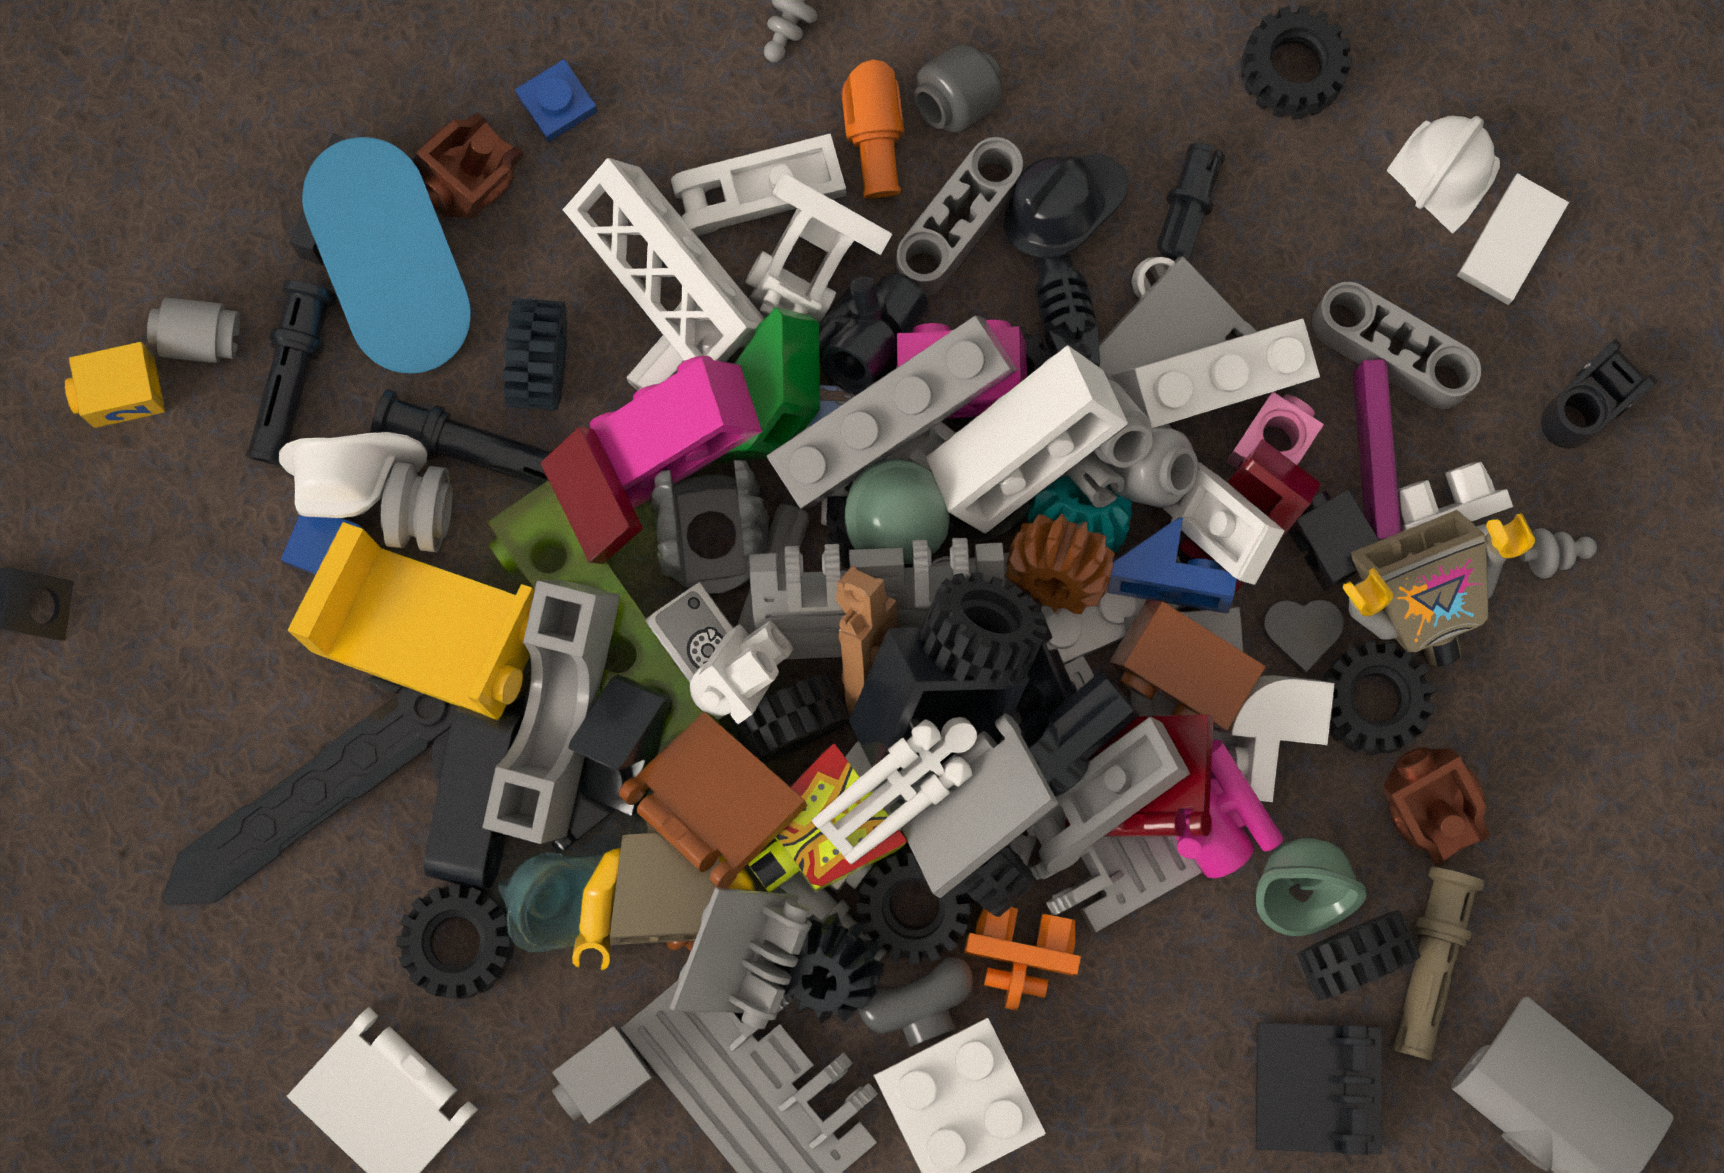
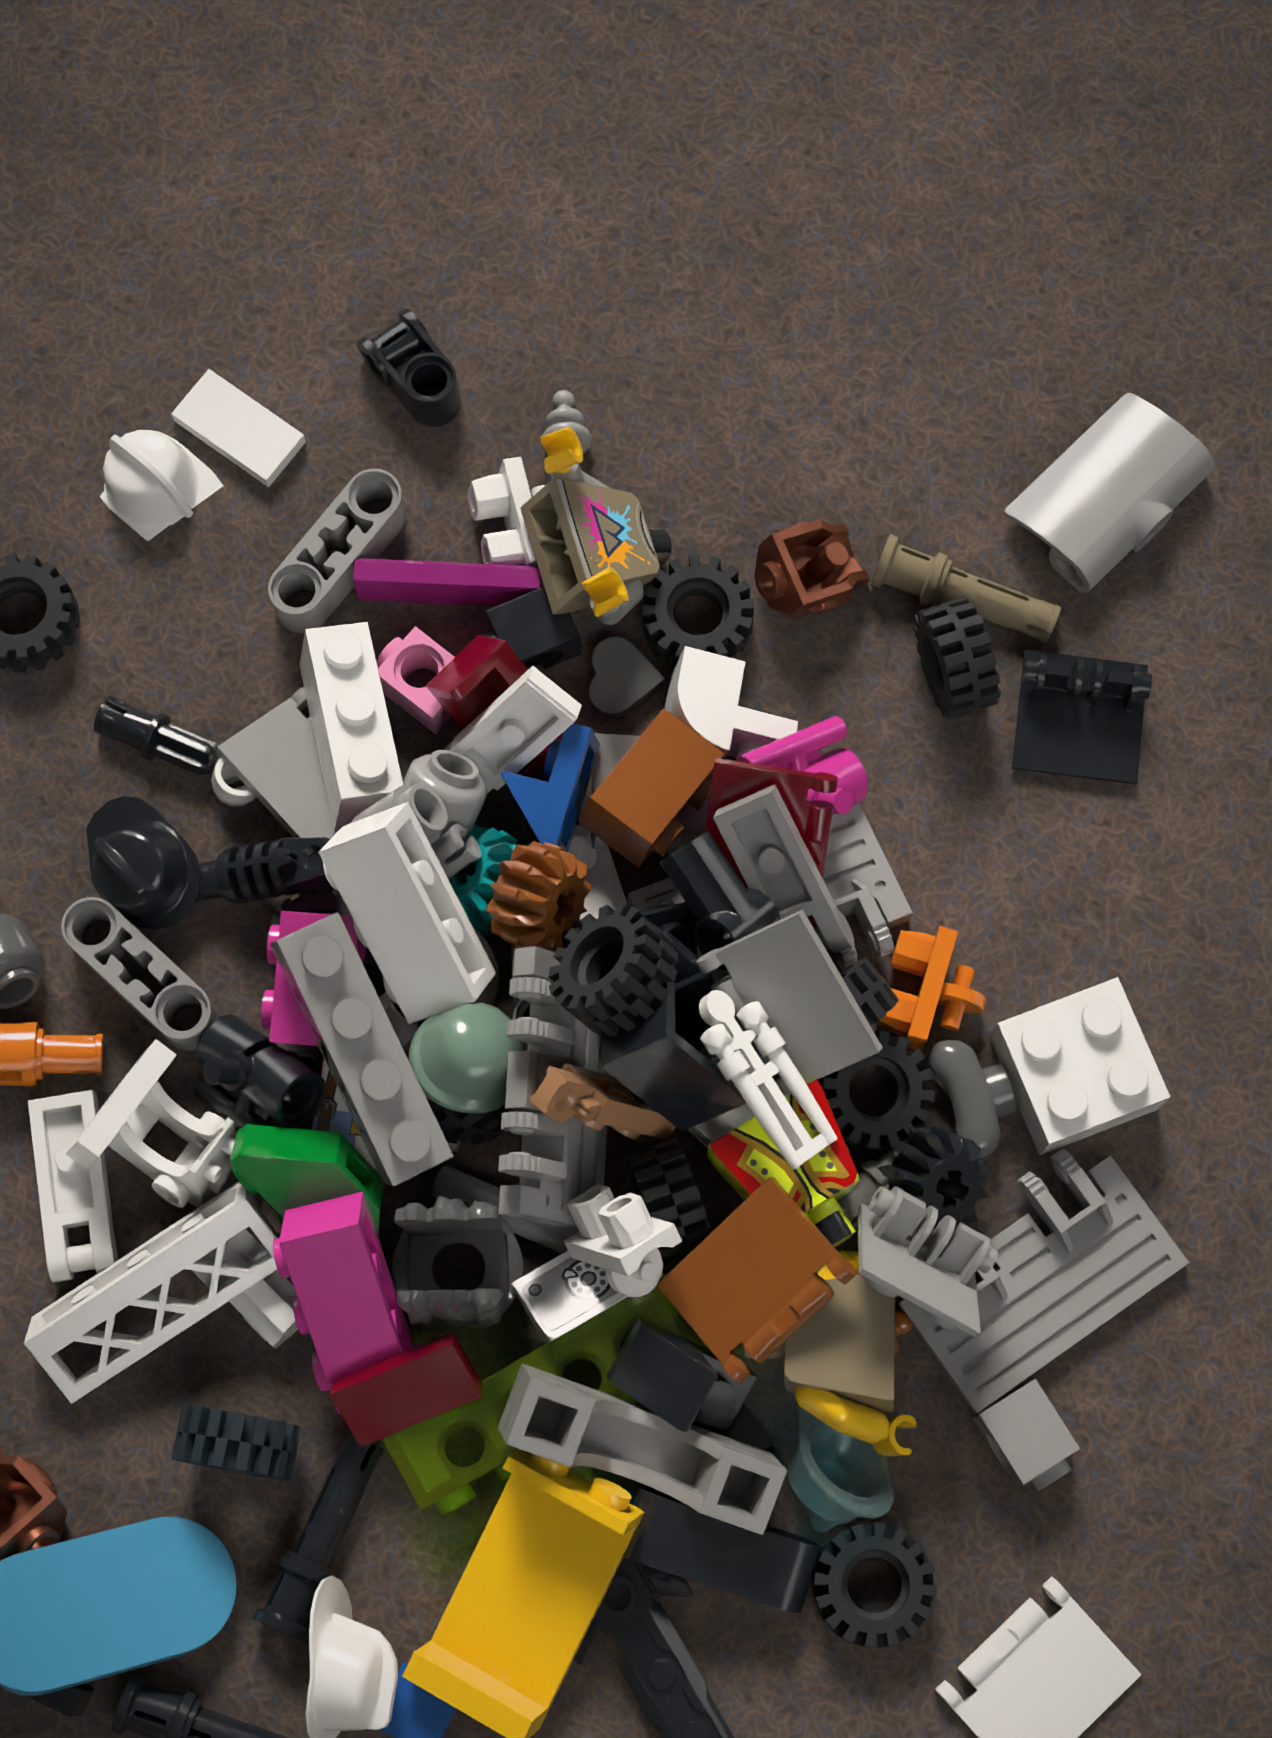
camera: 80 degrees left, 5 degrees down
(416, 507) = (392, 1592): light grey wheel -> none
(1316, 867) = (862, 694): sand green helmet -> none

